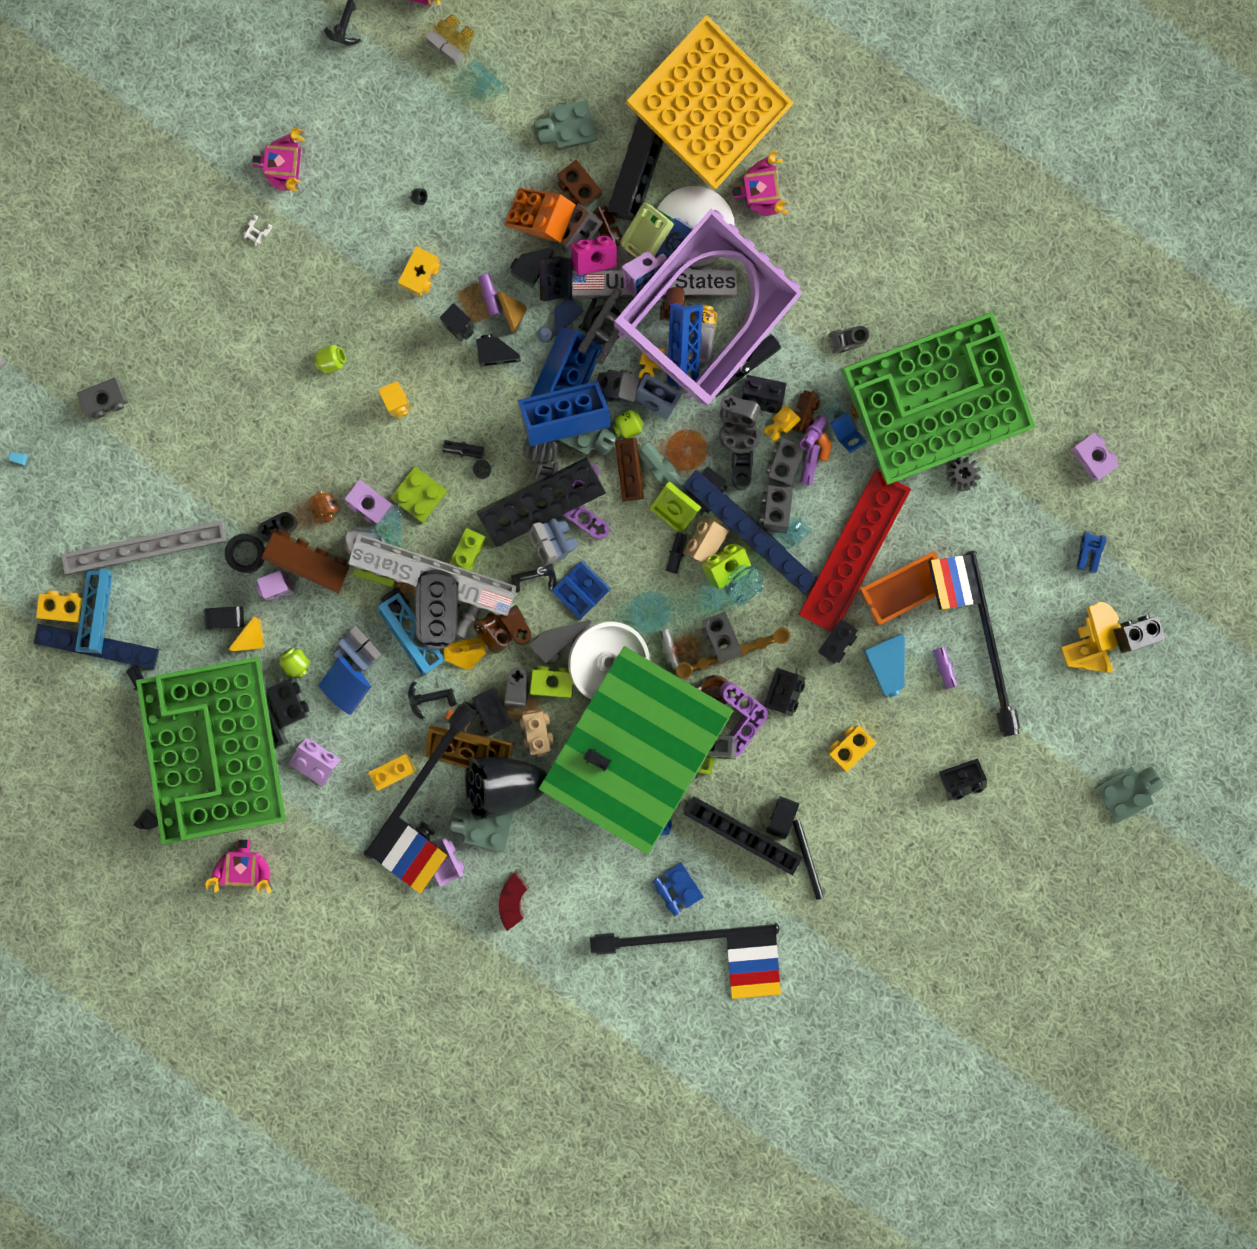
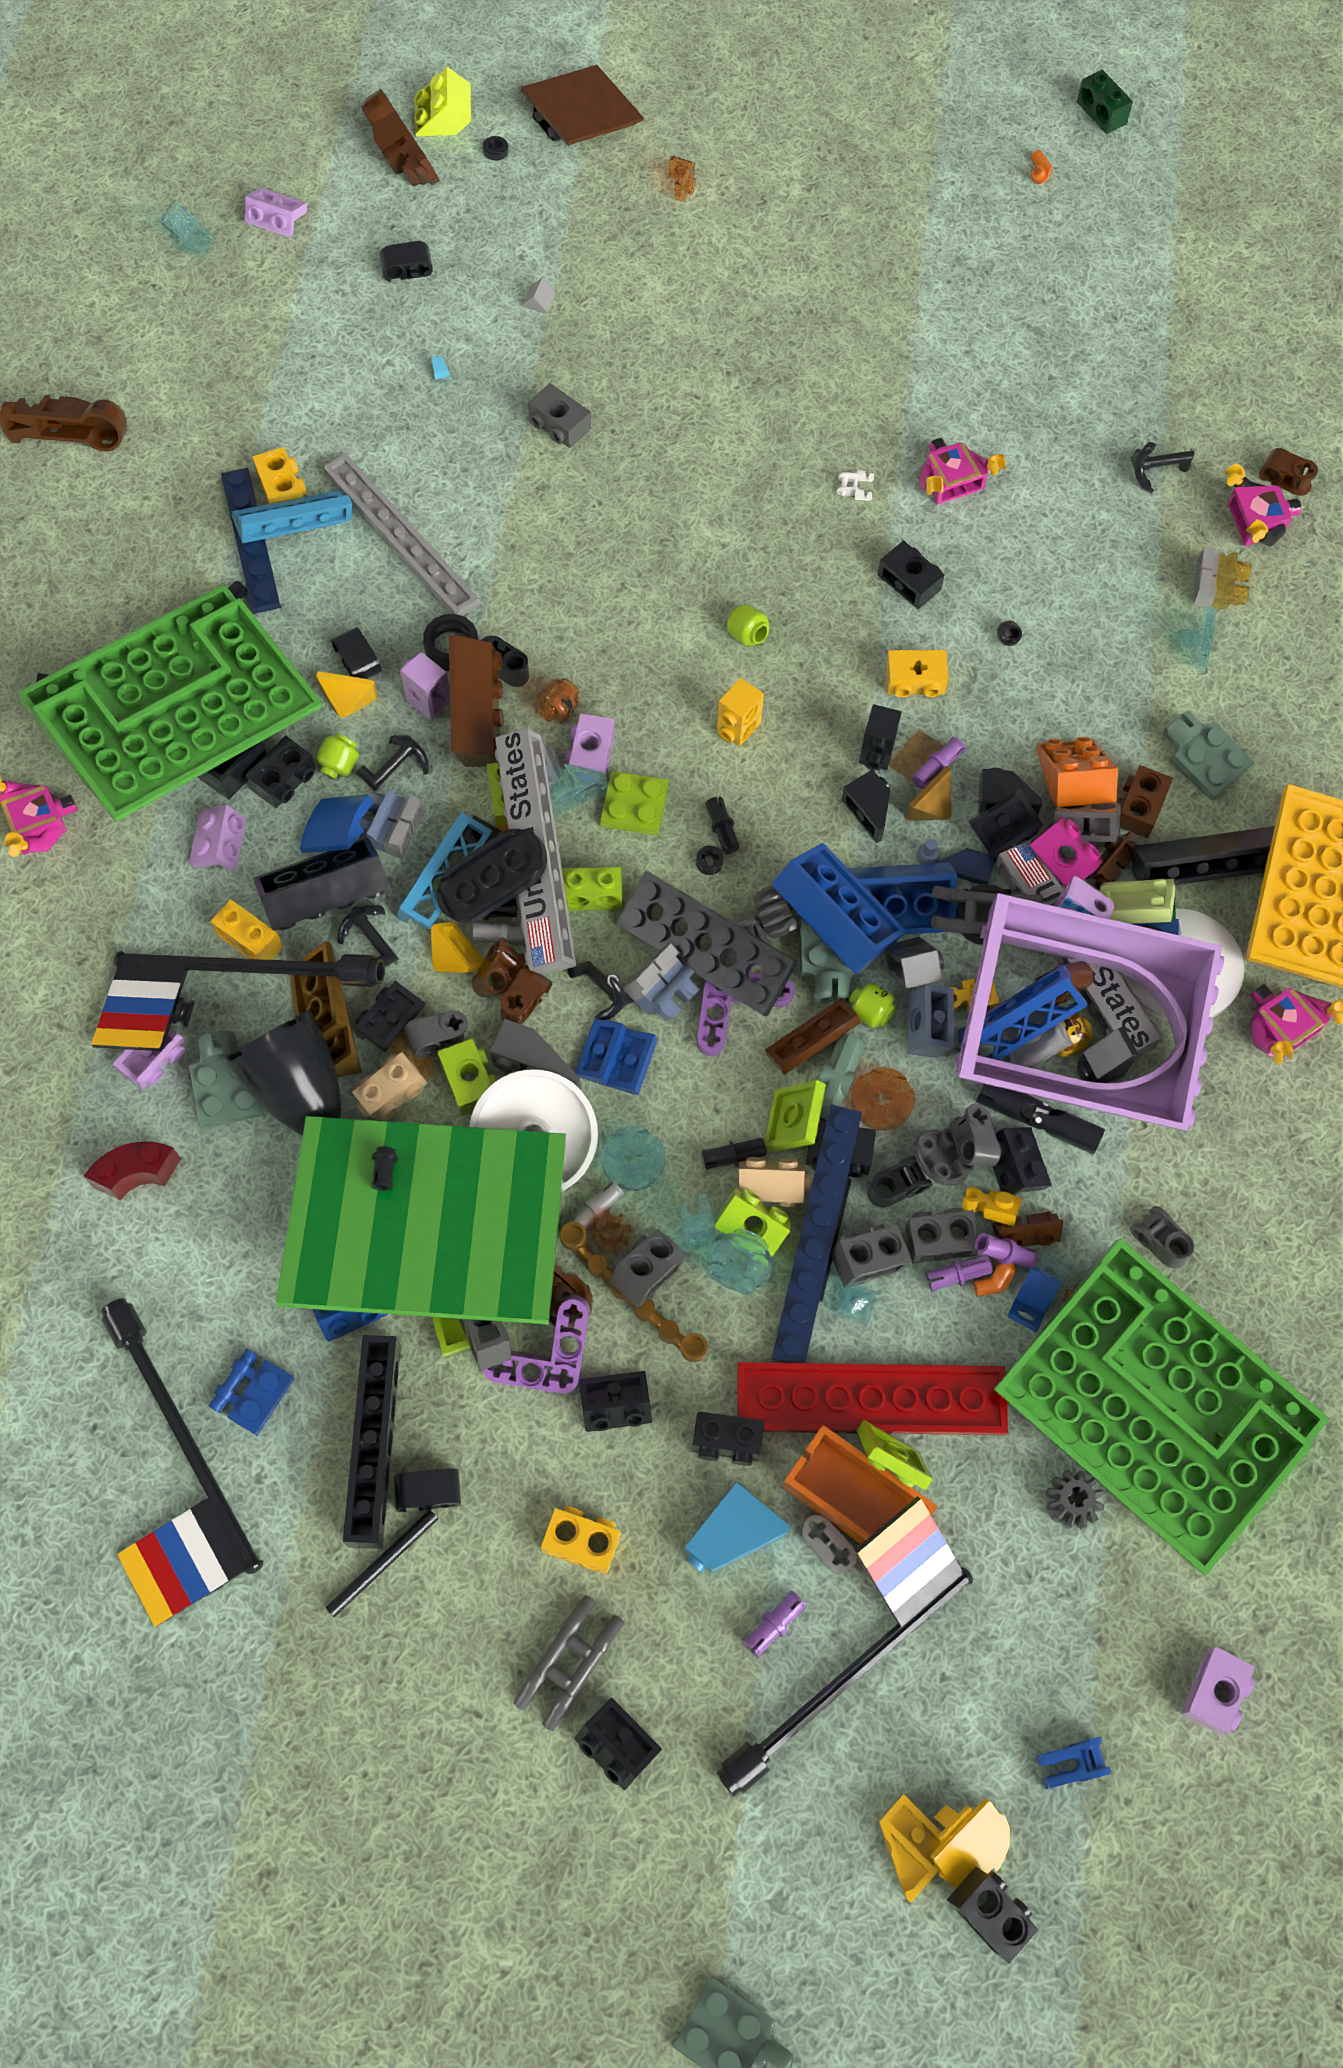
camera: 60 degrees right, 20 degrees down
(312, 621) = (407, 748): none -> black piece
(357, 237) = (911, 574): none -> black brick
(384, 713) = (321, 884): none -> black brick
(732, 309) = (1107, 1058): none -> slope
(895, 558) = (890, 1453): none -> lime plate
(913, 772) = (546, 1667): none -> dark grey piece
(917, 612) = (822, 1550): none -> light grey beam

